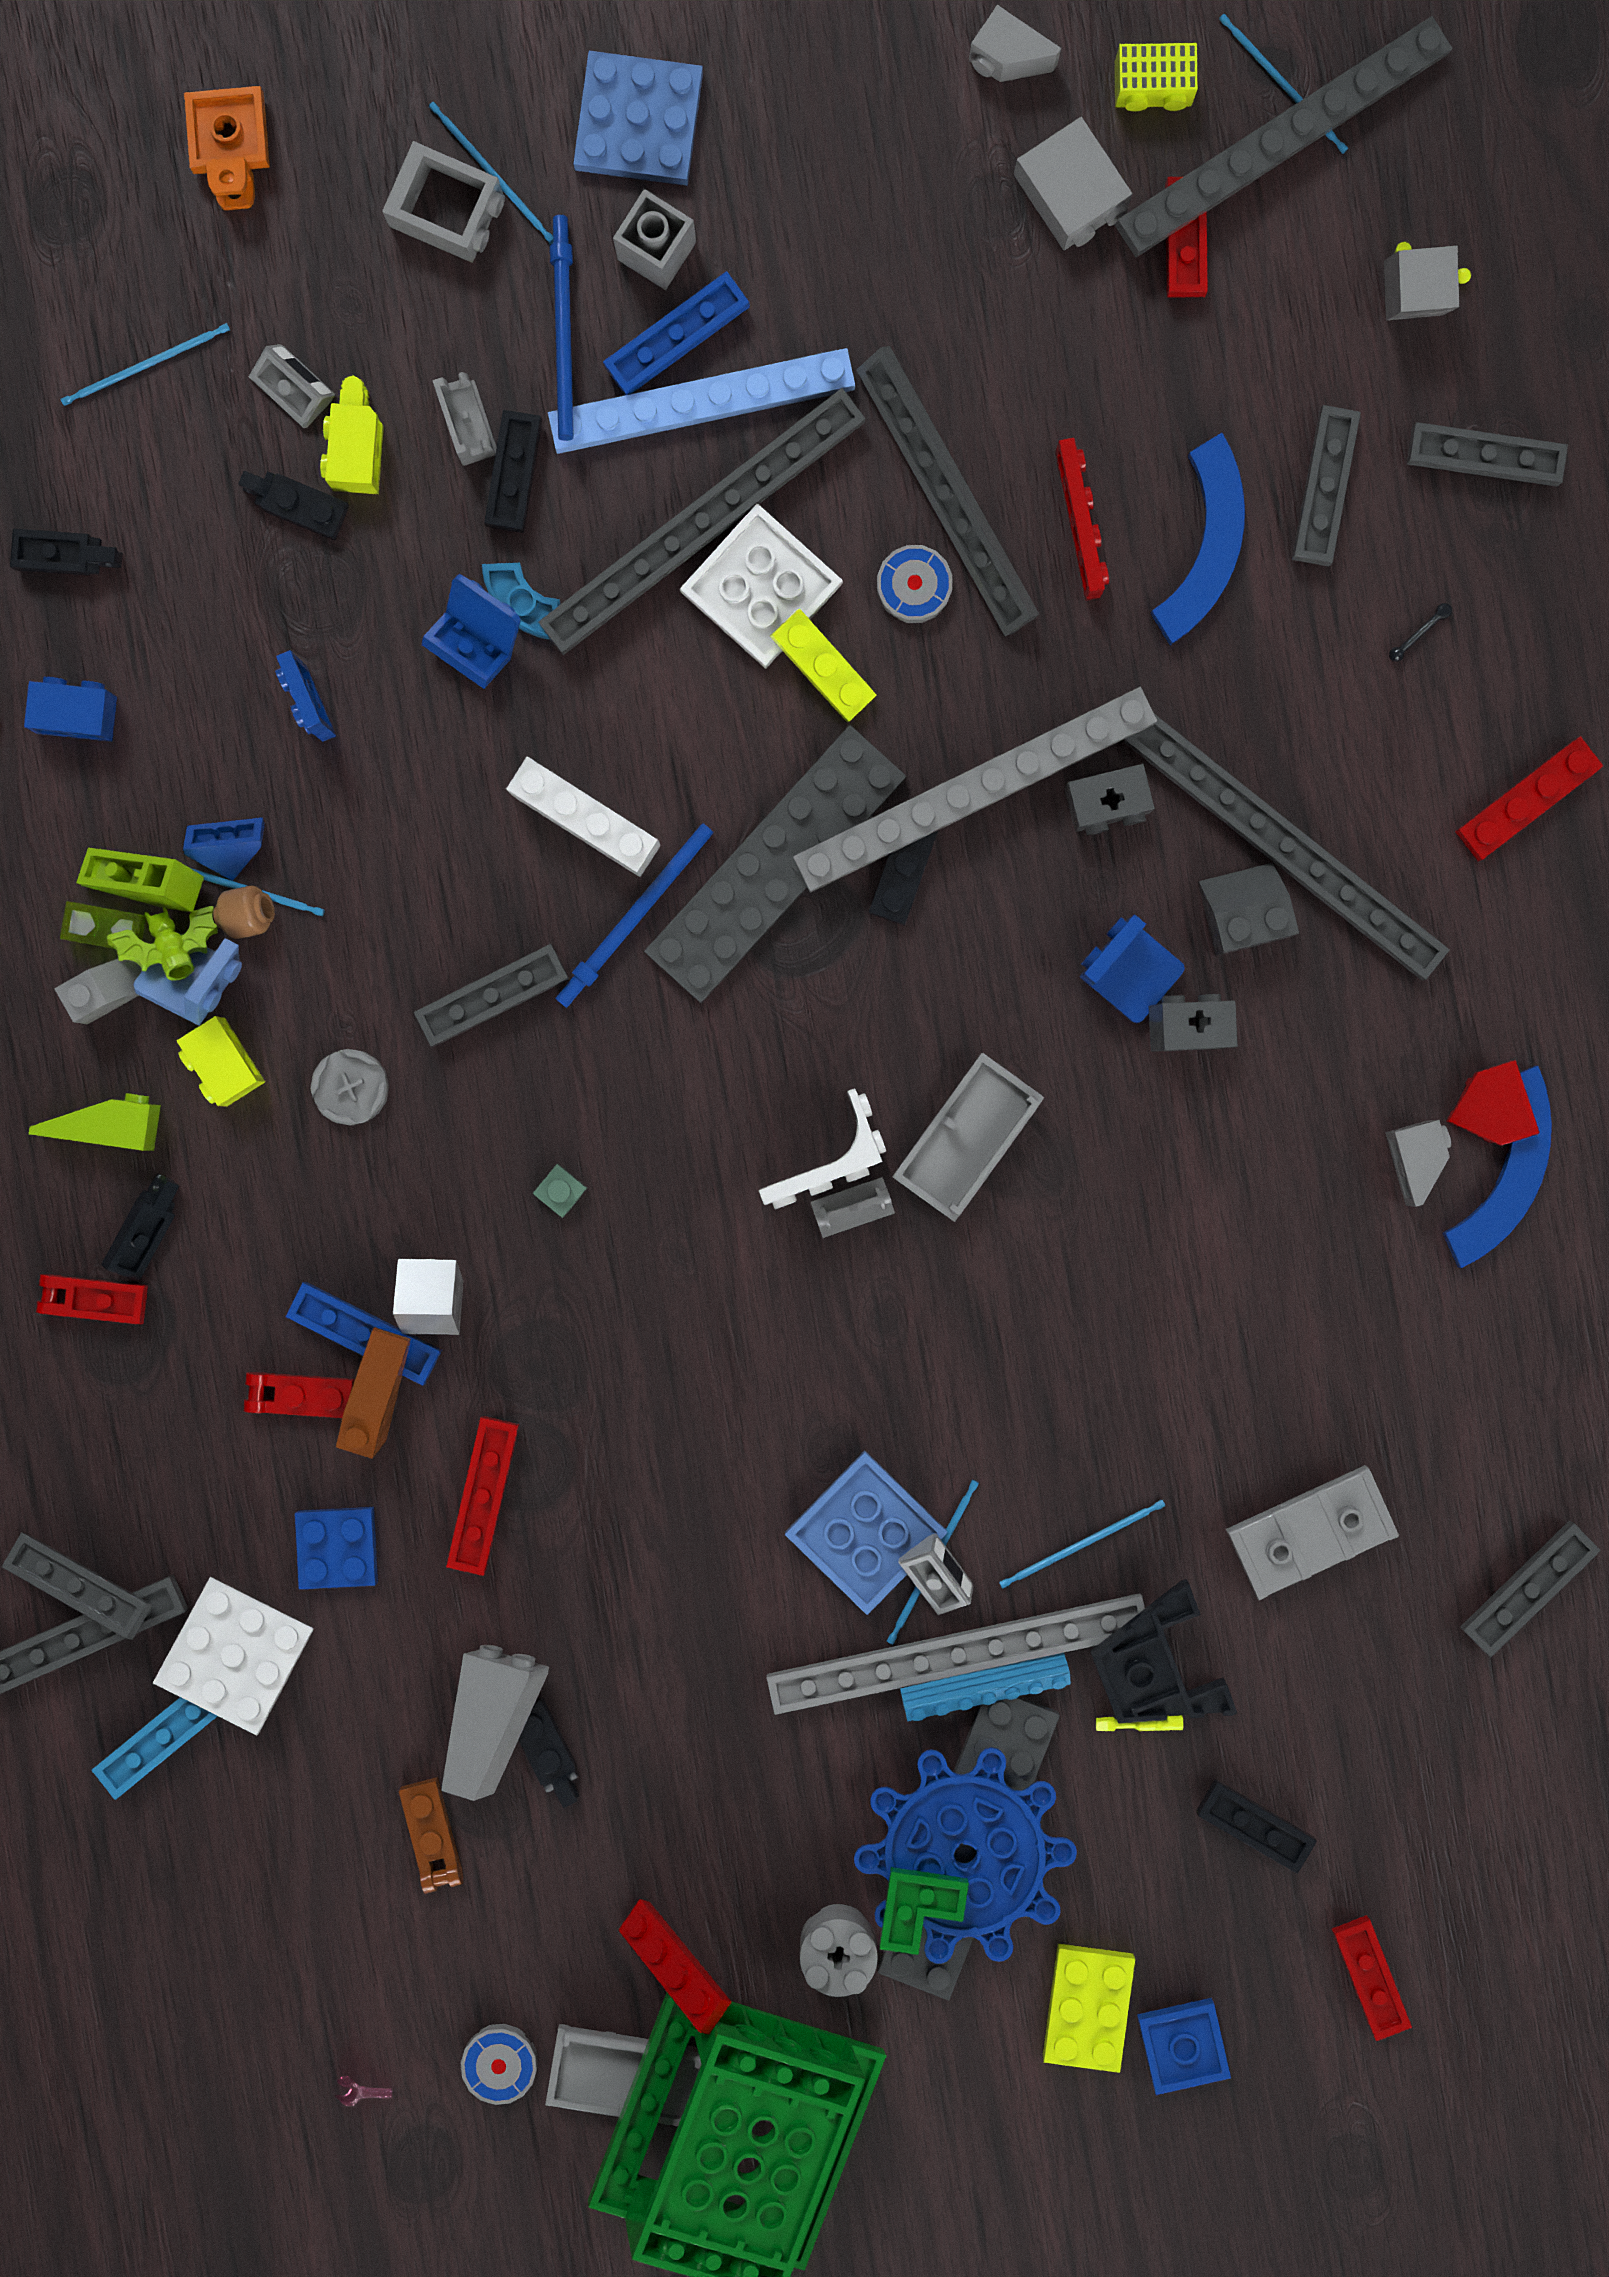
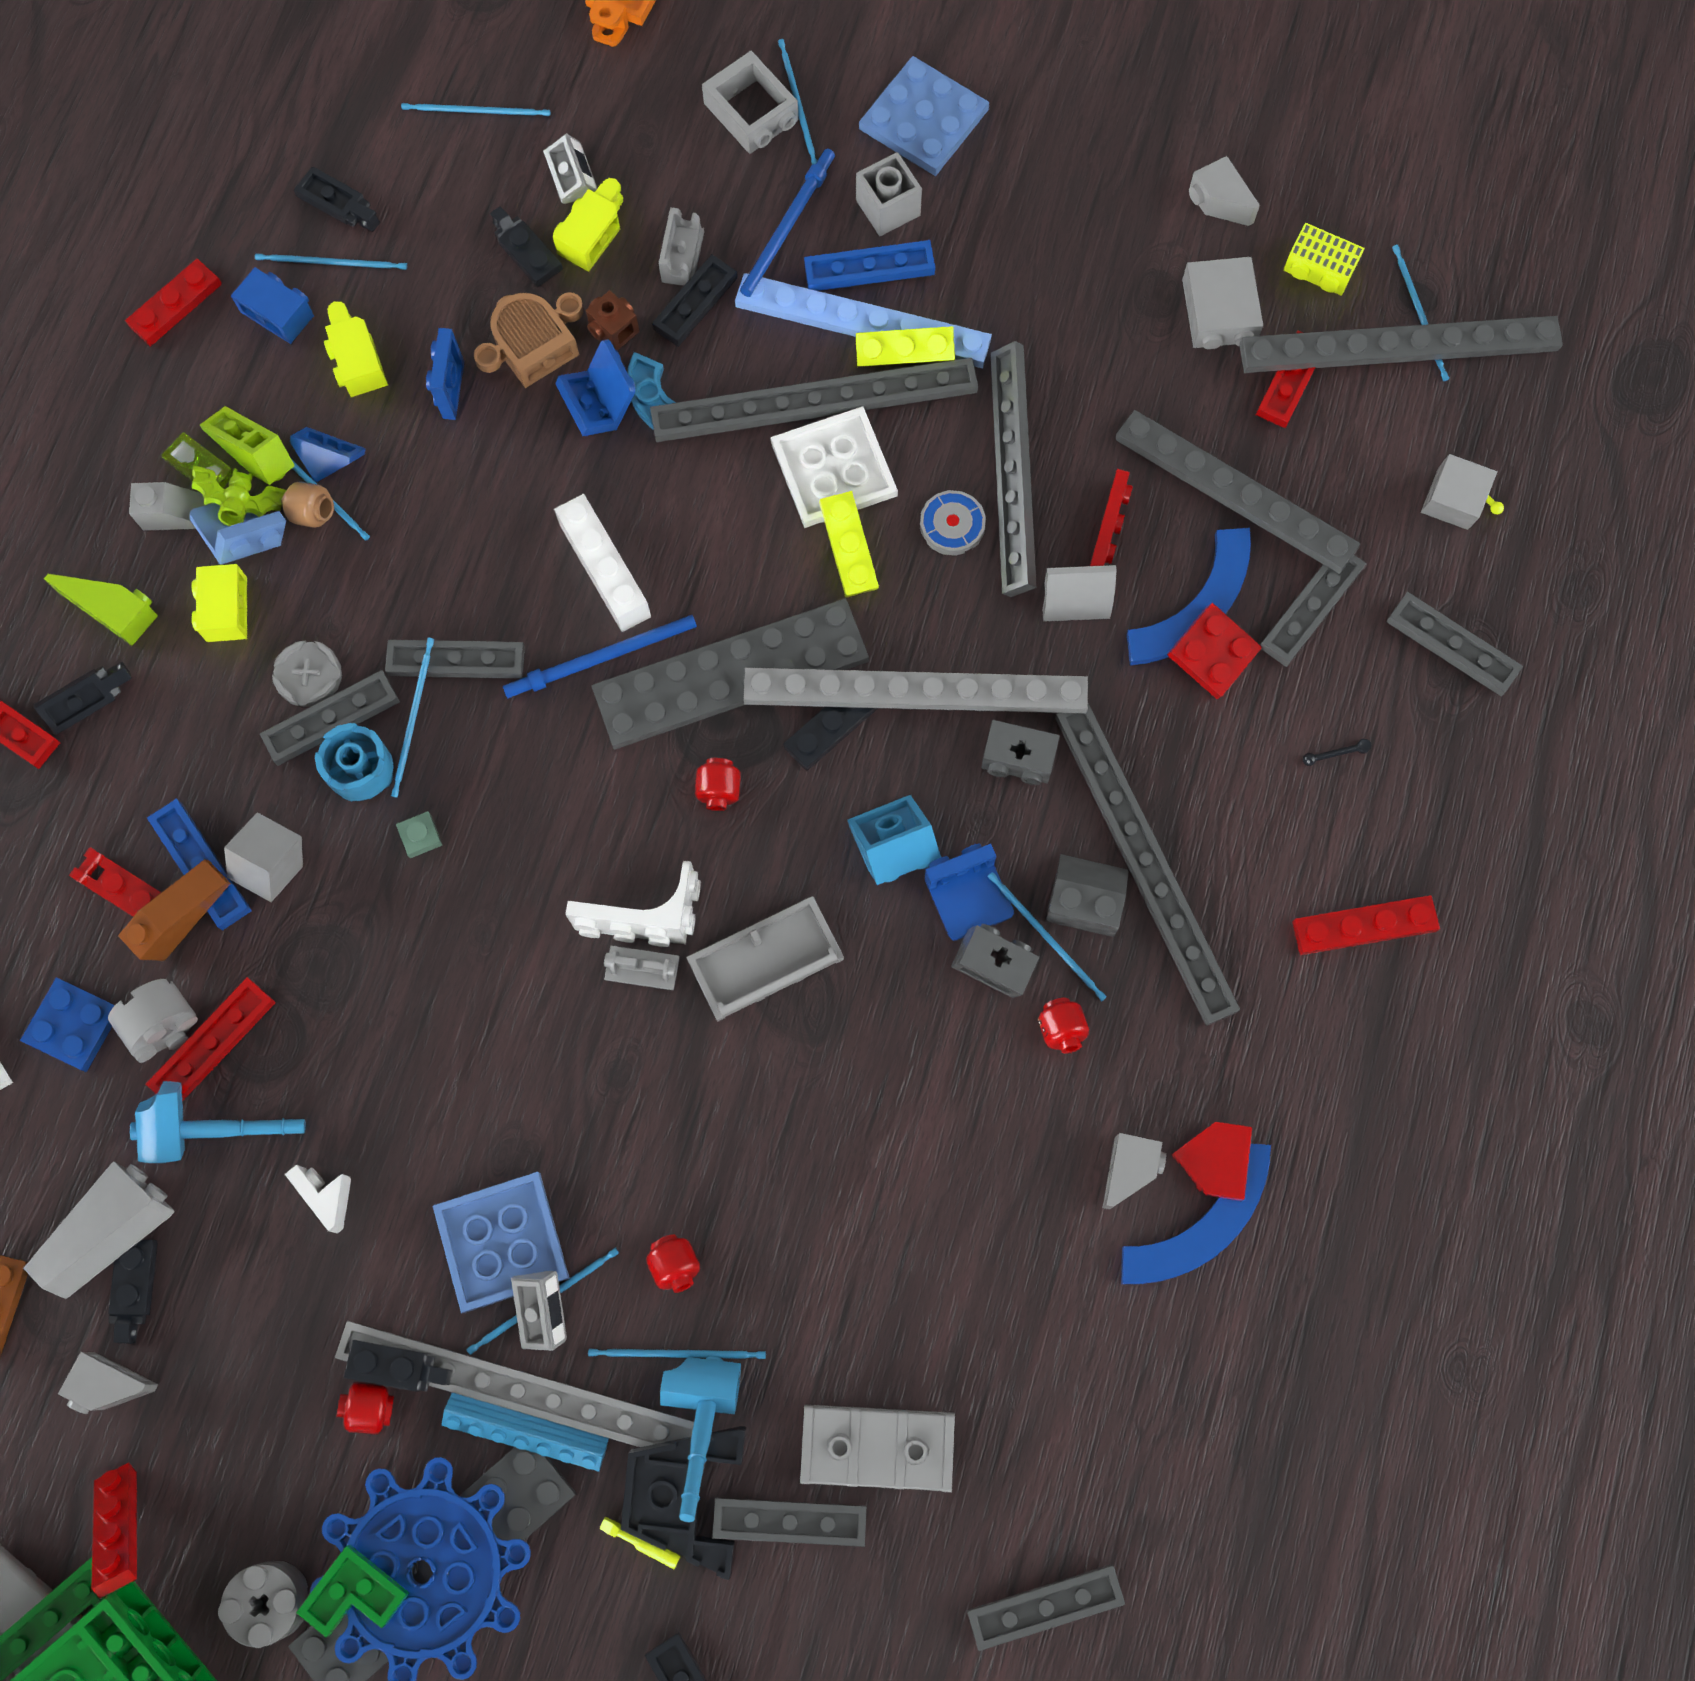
camera: 30 degrees right, 15 degrees down
(97, 626) = (331, 261): none -> dark azure piece
(189, 718) = (354, 352): none -> neon yellow hinge
(364, 603) = (530, 336): none -> medium nougat piece
(402, 1121) = (347, 706): none -> dark grey plate
(419, 1506) = (153, 1019): none -> light grey brick
(440, 542) = (612, 319): none -> copper brick
(457, 1133) = (362, 779): none -> dark azure brick
(485, 1077) = (413, 714): none -> dark azure piece
(491, 1601) = (162, 1130): none -> dark azure piece
(576, 1847) = (102, 1384): none -> light grey slope
(684, 1585) = (326, 1203): none -> white slope
(765, 411) = (905, 346): none -> neon yellow plate
(828, 988) = (717, 784): none -> red head
(829, 1742) = (366, 1408): none -> red head
(836, 1695) = (393, 1367): none -> black hinge
(1030, 952) = (894, 839): none -> dark azure slope
(1037, 1468) = (673, 1263): none -> red head
(1088, 600) = (1079, 593): none -> light grey slope
(1132, 1561) = (708, 1388): none -> dark azure piece
(1190, 398) = (1238, 492): none -> dark grey plate
(1227, 972) = (1047, 936): none -> dark azure piece
(1250, 588) = (1214, 651): none -> red plate
(1265, 1636) = (789, 1522): none -> dark grey plate
(1288, 1053) = (1063, 1025): none -> red head

